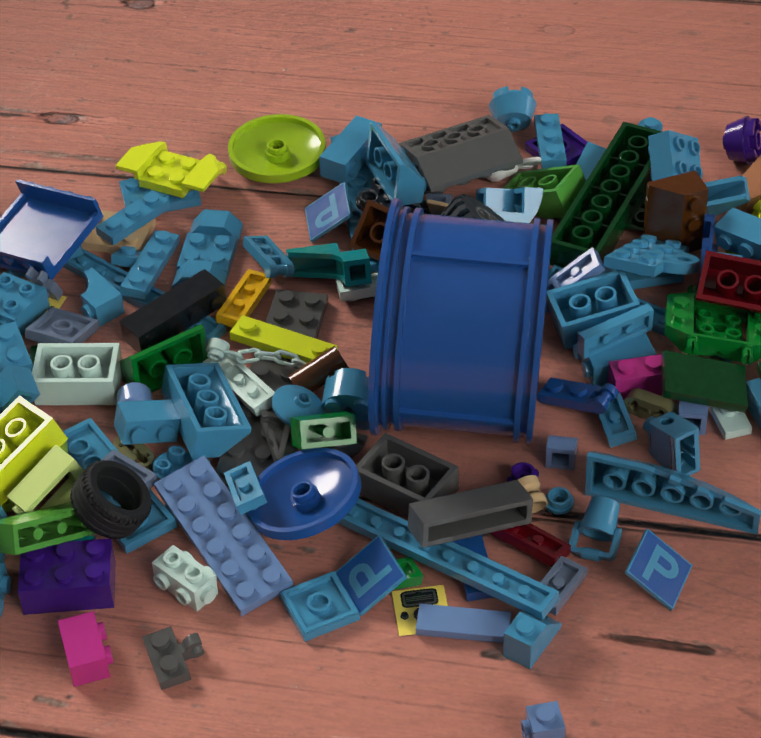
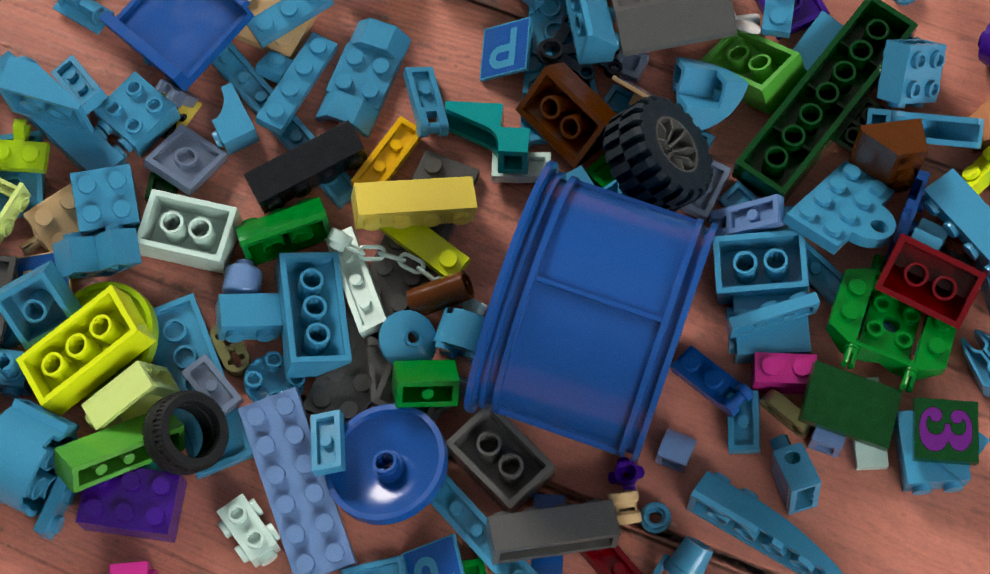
camera: 15 degrees right, 25 degrees up
(277, 311) = (413, 202): none -> light yellow brick

